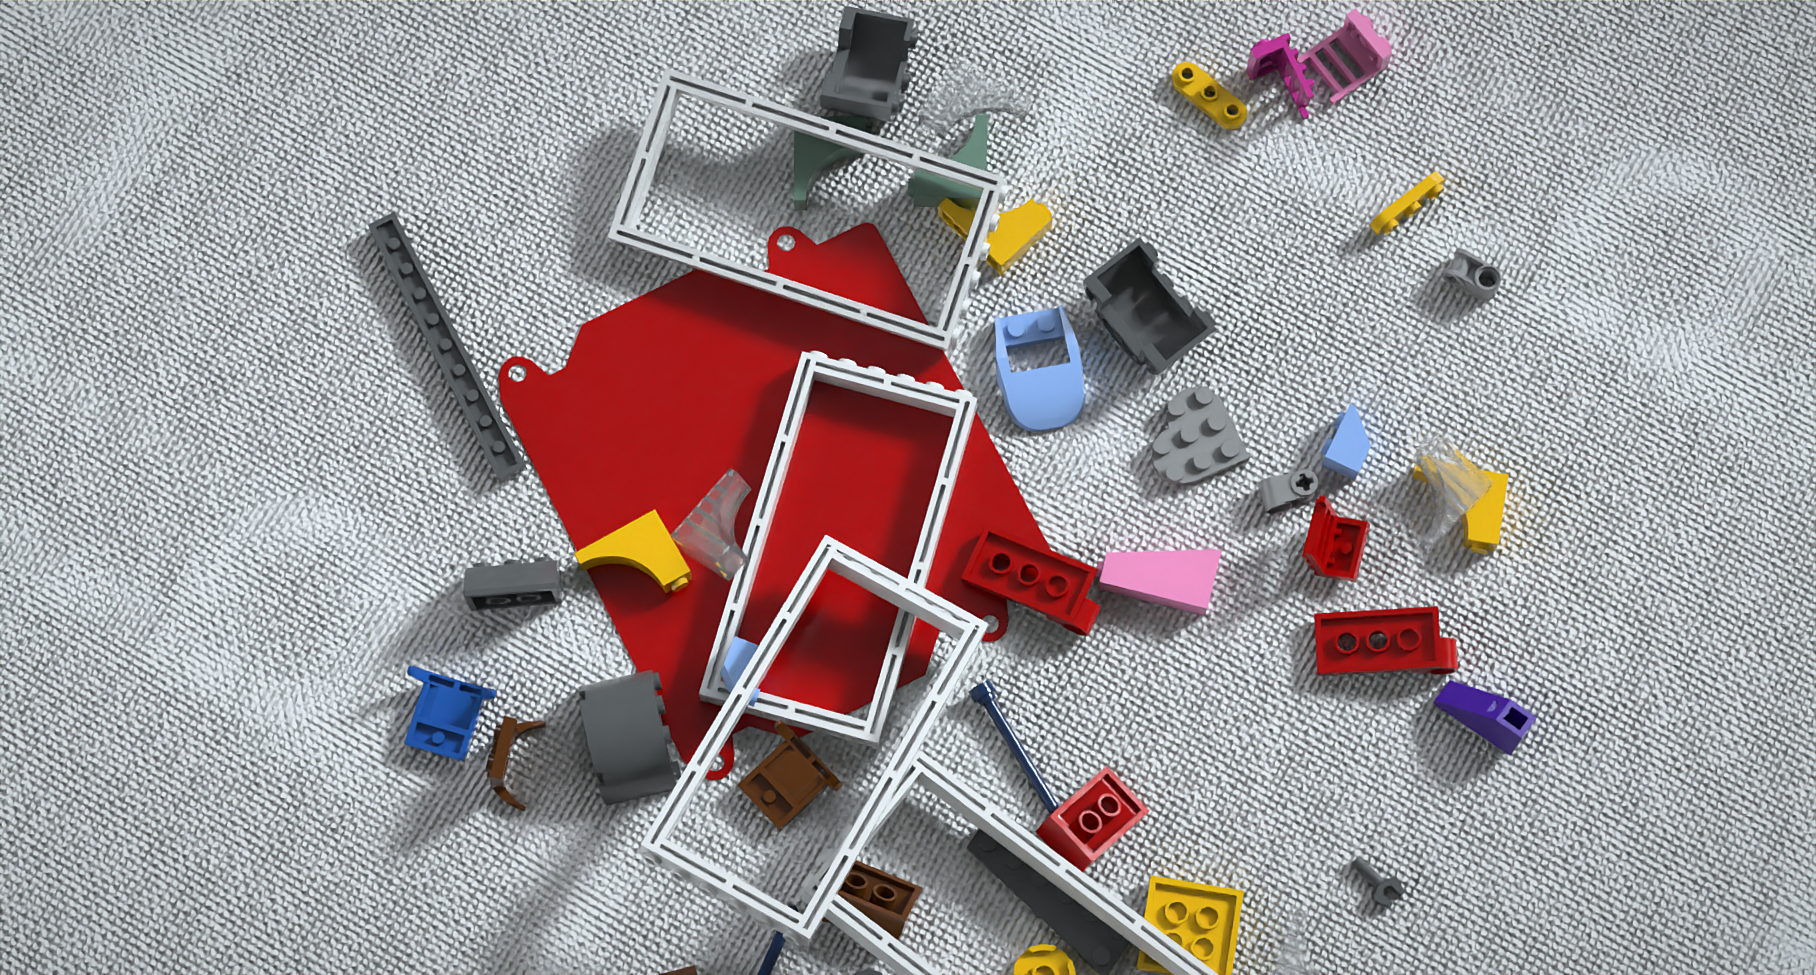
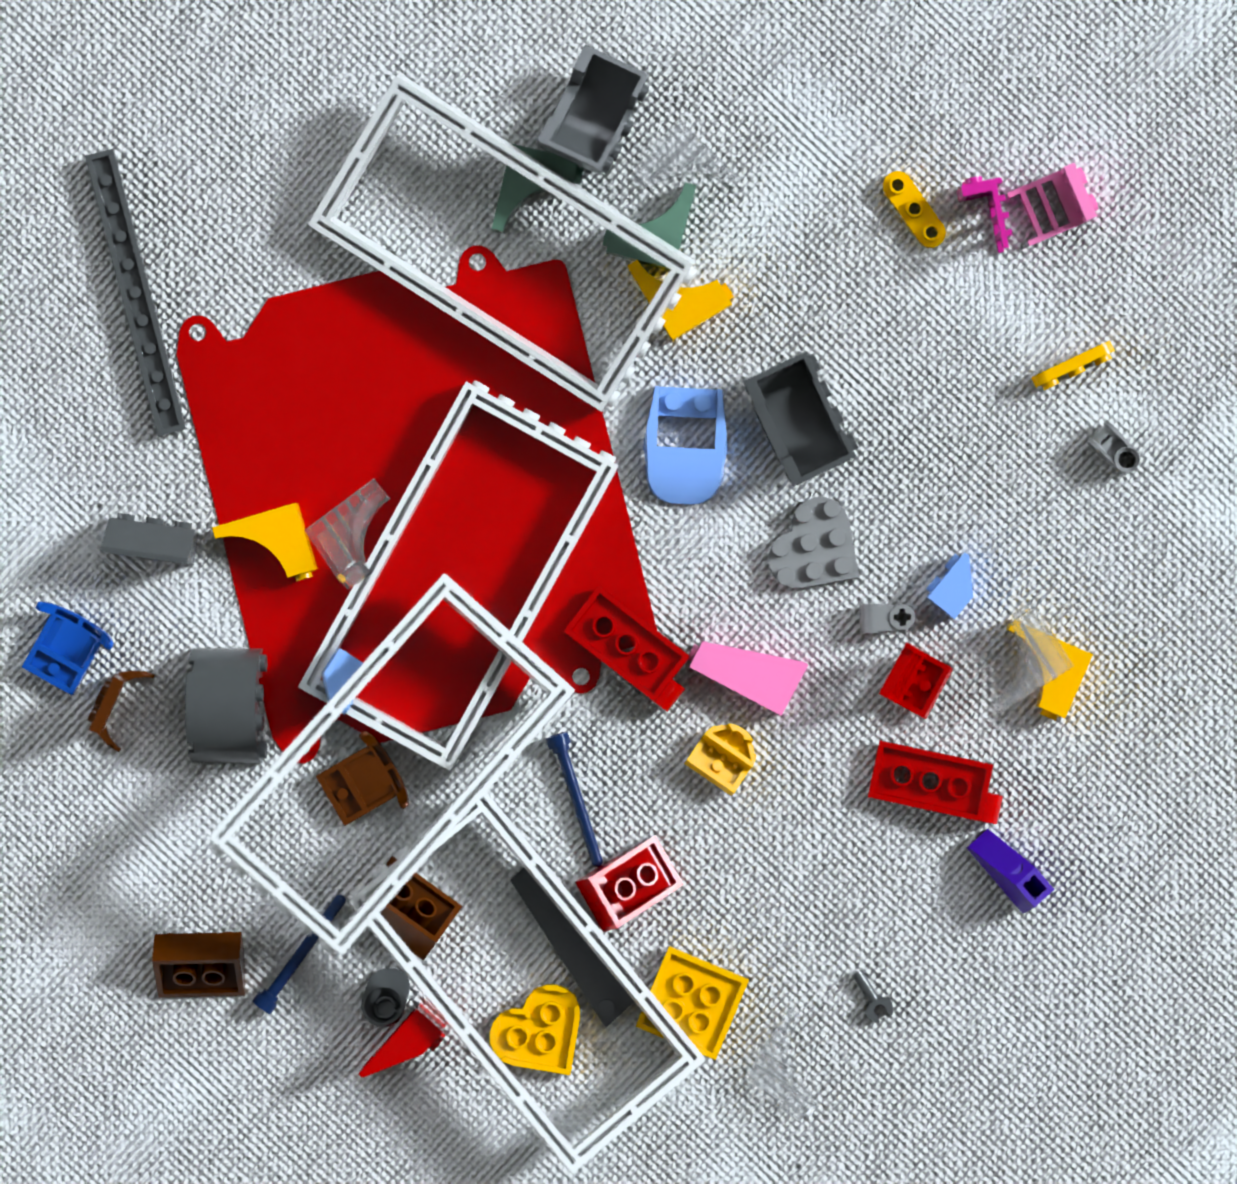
camera: 15 degrees right, 15 degrees up
(1157, 667) = (723, 756): none -> yellow slope

